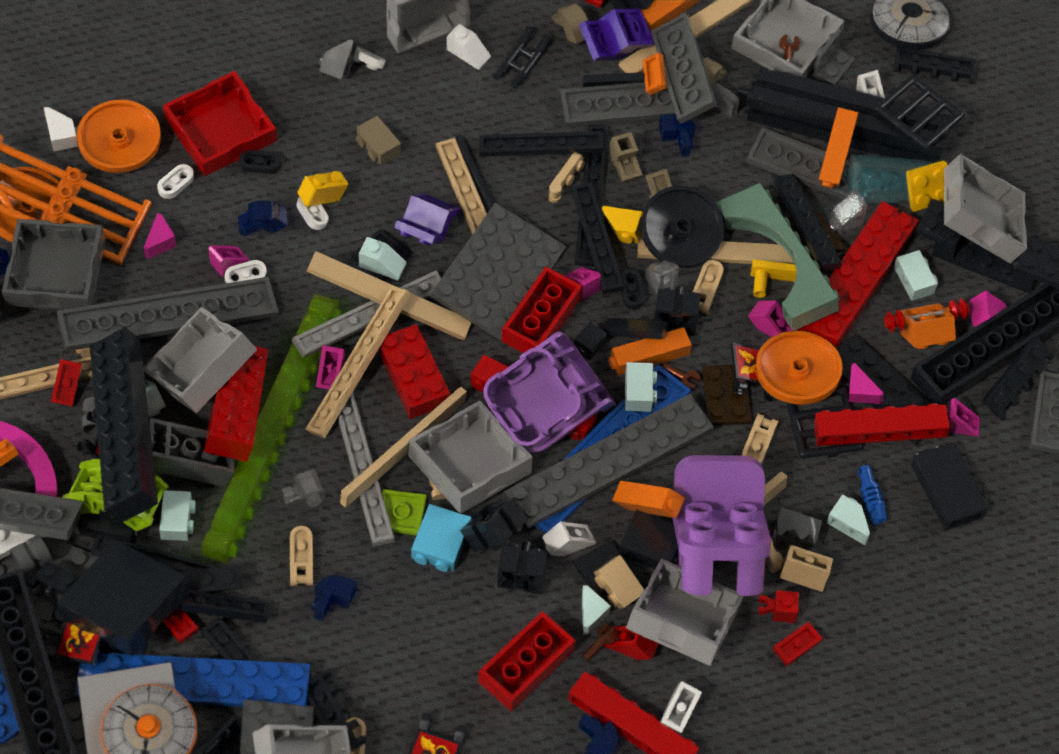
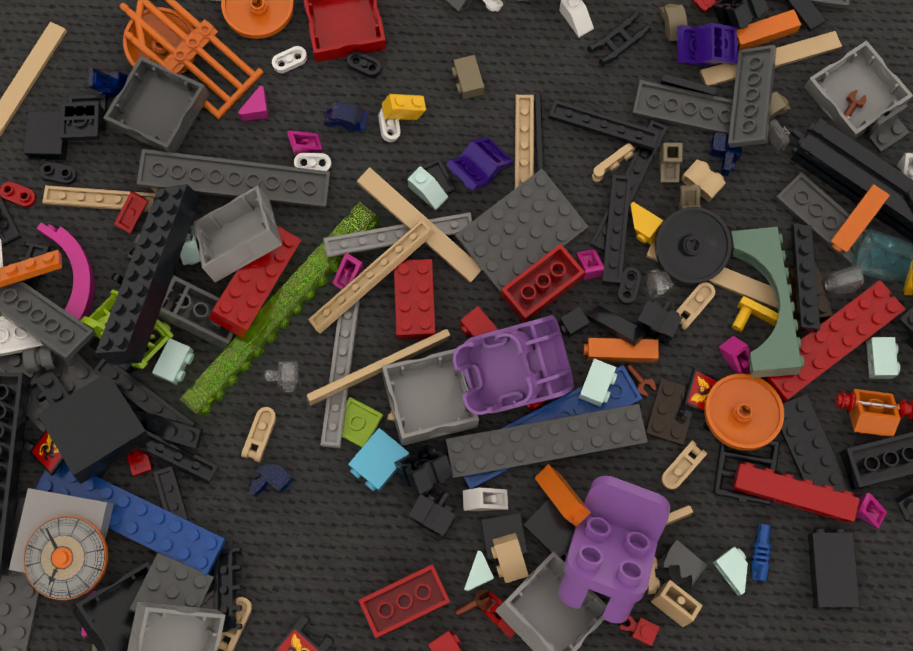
camera: 25 degrees right, 15 degrees up
(654, 73) = (725, 92): orange tile -> none
(675, 163) = (701, 175): none -> tan brick
(863, 388) = (792, 452): dark pink slope -> none

